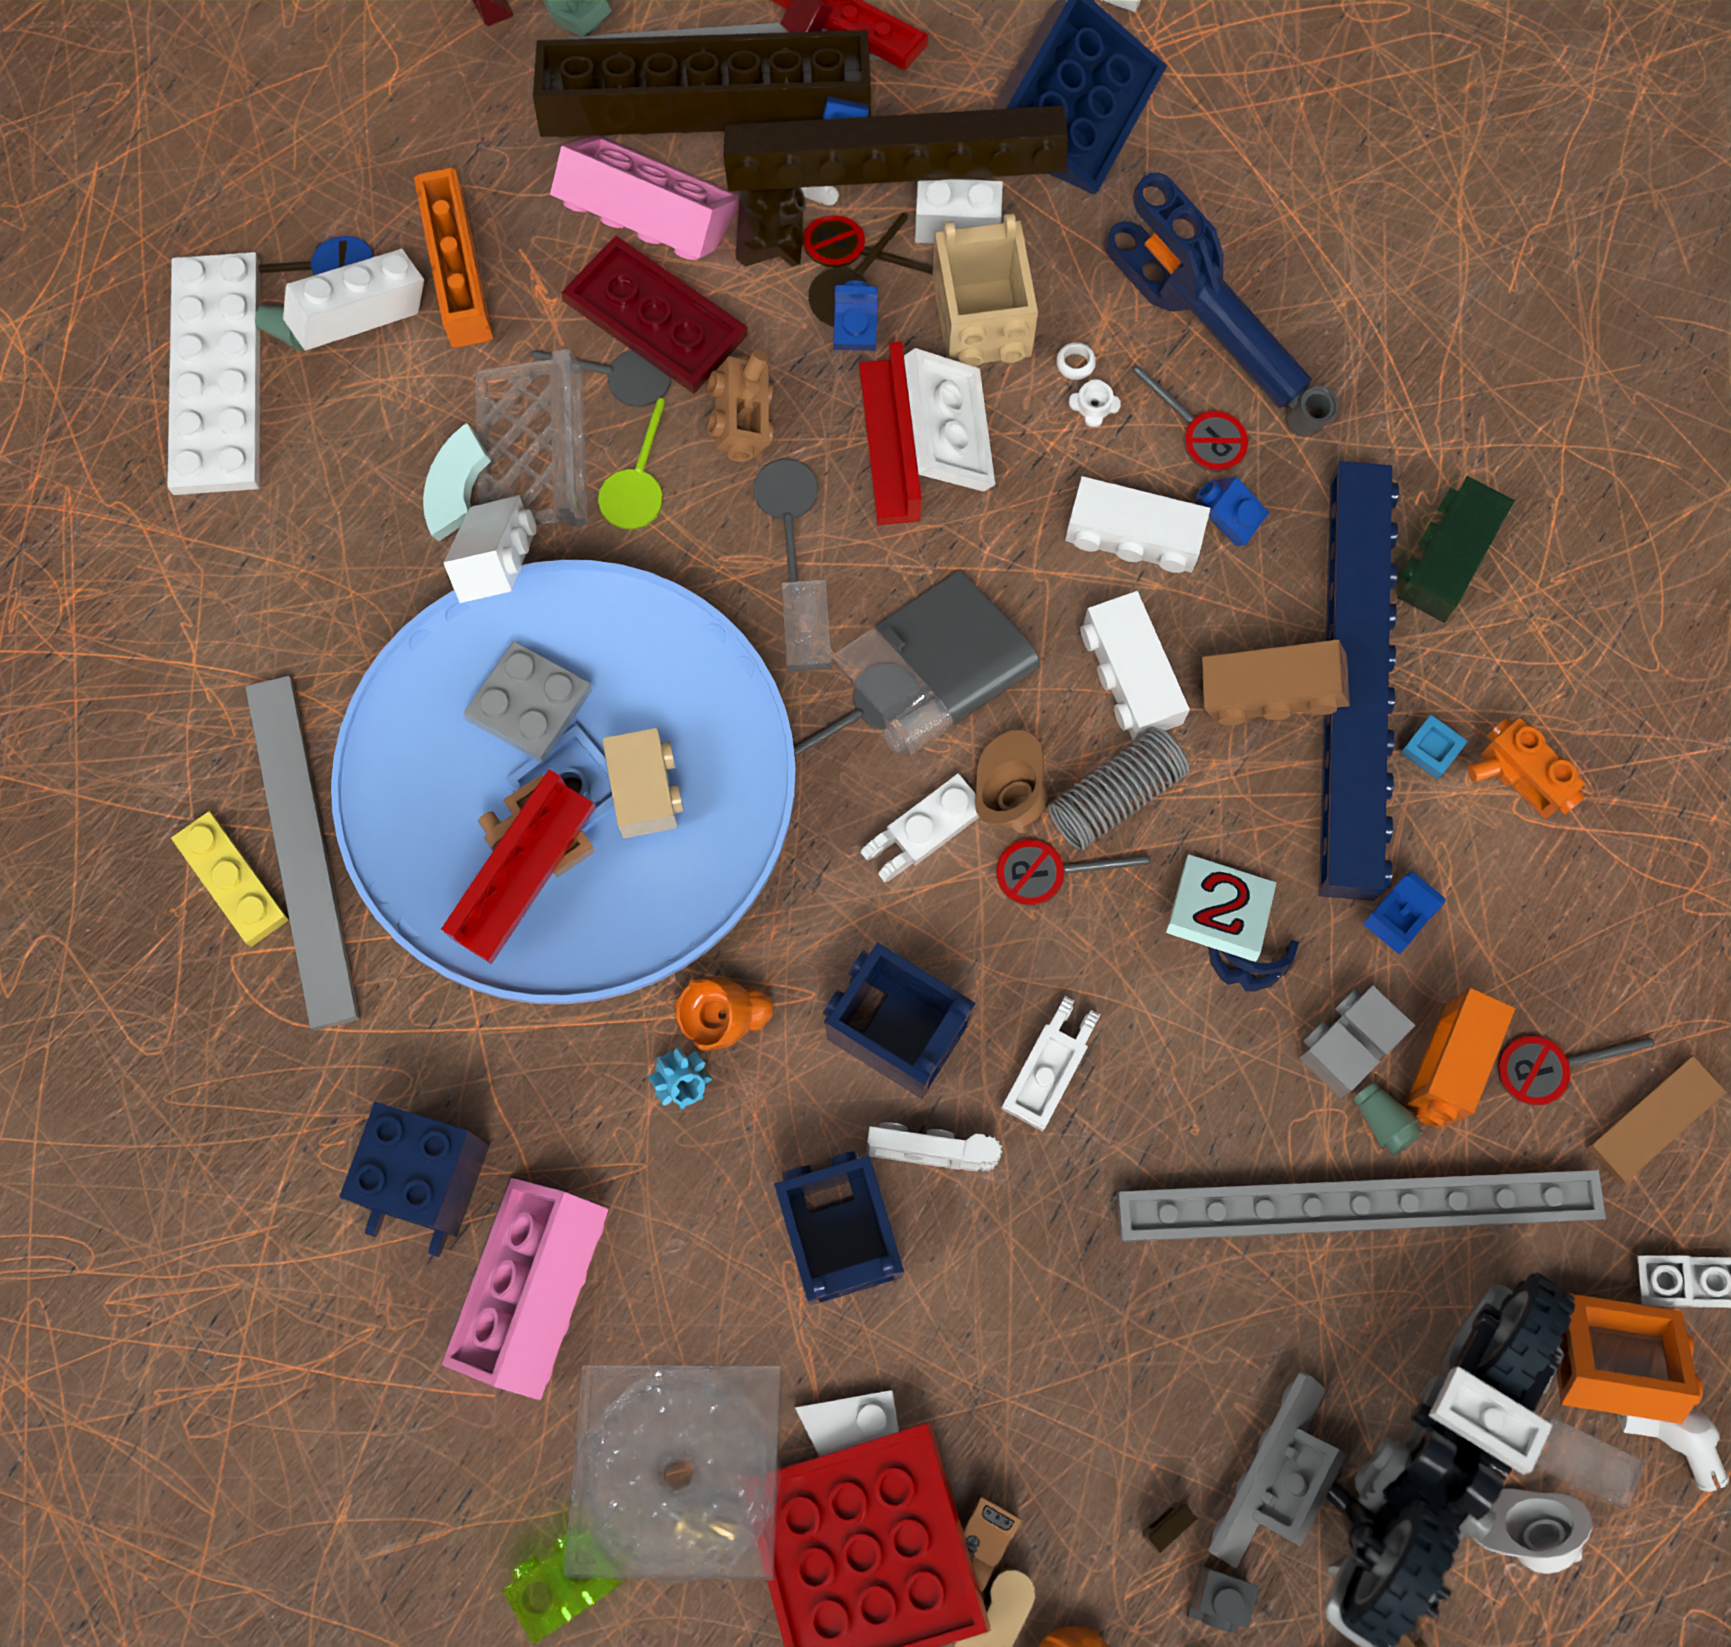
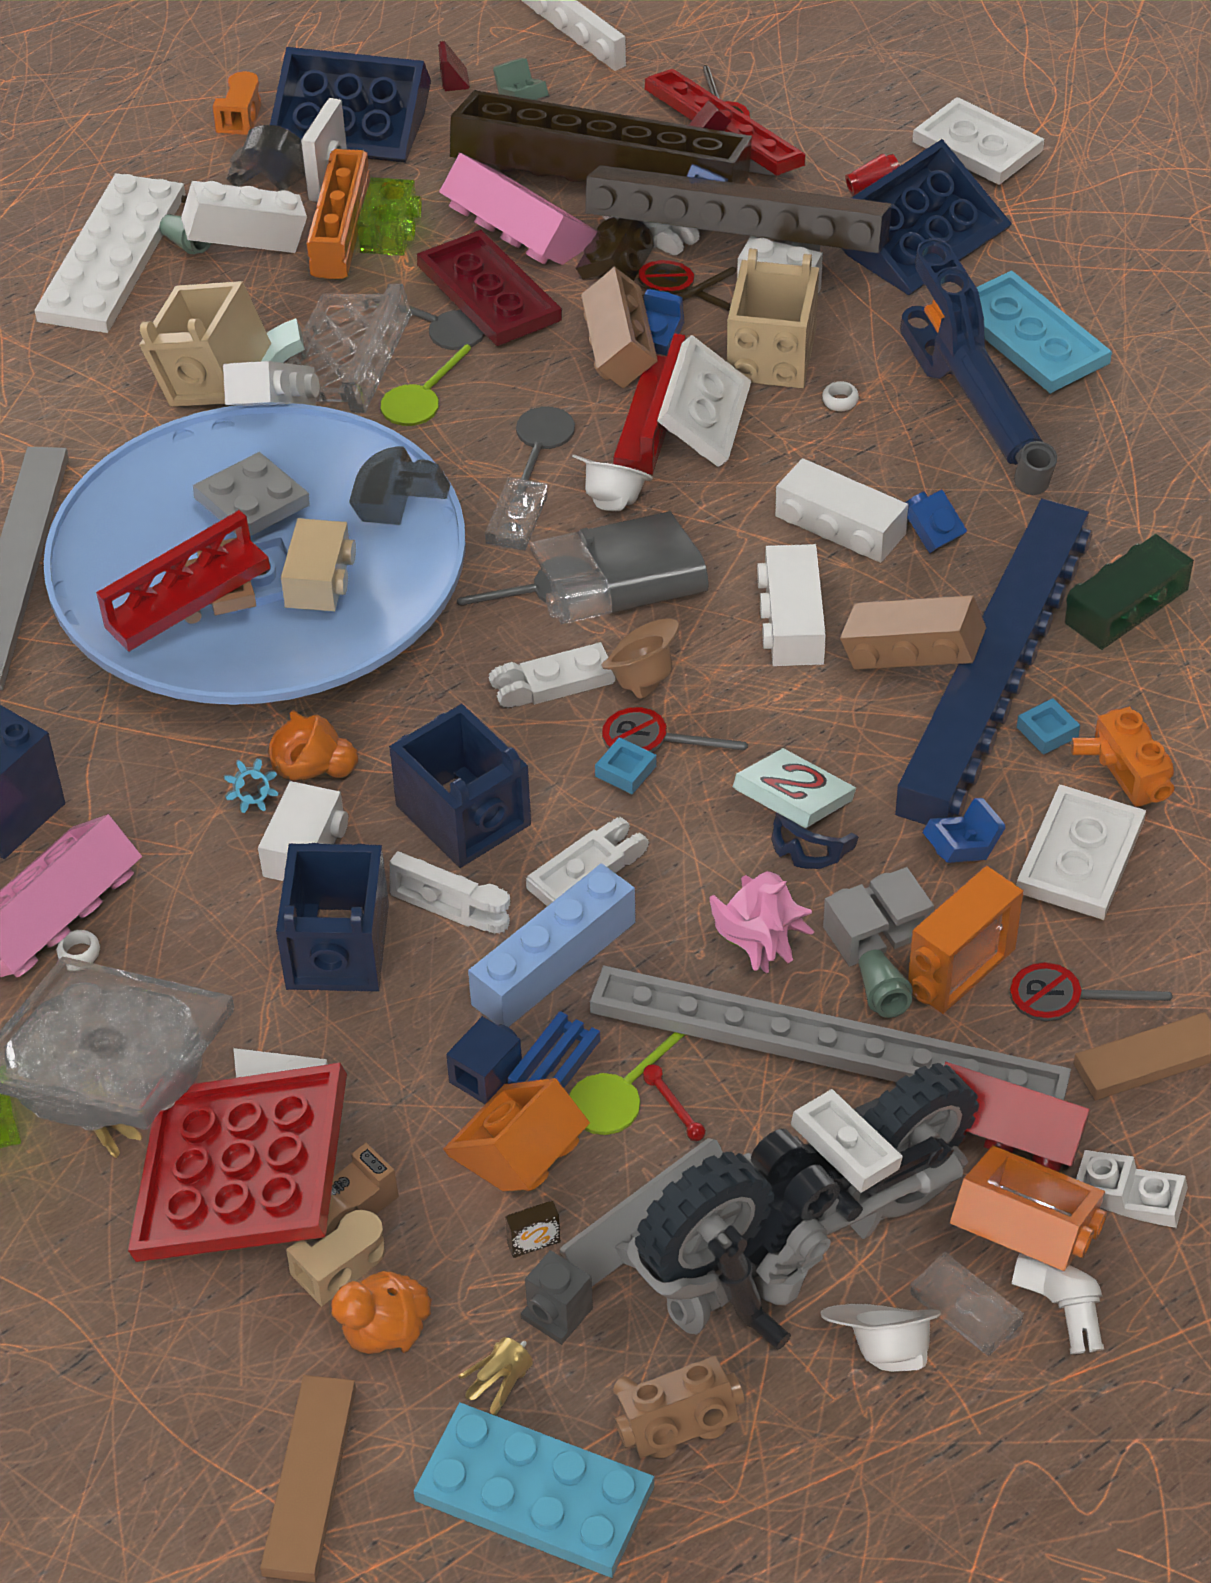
camera: 20 degrees right, 25 degrees down
(273, 124) = (241, 106): none -> orange leg
(342, 189) = (269, 151): none -> clear smoke brick
(371, 522) = (197, 335): none -> tan container
(395, 89) = (378, 94): none -> dark blue slope
(400, 167) = (321, 138): none -> white plate
(502, 242) = (388, 216): none -> clear neon green brick
(602, 1331) = (77, 937): none -> white piece
(673, 654) = (389, 479): none -> clear smoke brick
(741, 406) = (533, 352): medium nougat brick -> none
(757, 1121) = (302, 817): none -> white brick
(820, 341) = (618, 328): none -> medium nougat brick
(889, 554) = (612, 484): none -> white piece
(1005, 37) = (870, 173): none -> red cone
(1043, 927) = (625, 765): none -> dark azure plate
(1048, 1340) = (484, 1059): none -> dark blue brick
(1061, 1184) = (552, 946): none -> light blue brick
(1074, 825) = (684, 691): light grey piece -> none
(1095, 391) = (843, 424): white plate -> none
(1111, 1420) = (519, 1134): none -> orange slope
(1115, 1268) = (545, 1042): none -> blue tile
(1170, 1336) = (611, 1100): none -> lime piece
(1206, 1294) = (653, 1076): none -> red hinge
(1212, 439) = (938, 470): piece -> none
(1251, 1091) = (760, 919): none -> bright pink hair
(1253, 221) = (1038, 334): none -> medium azure plate
(1517, 896) = (1081, 851): none -> white plate
(1568, 1249) = (1025, 1119): none -> brick

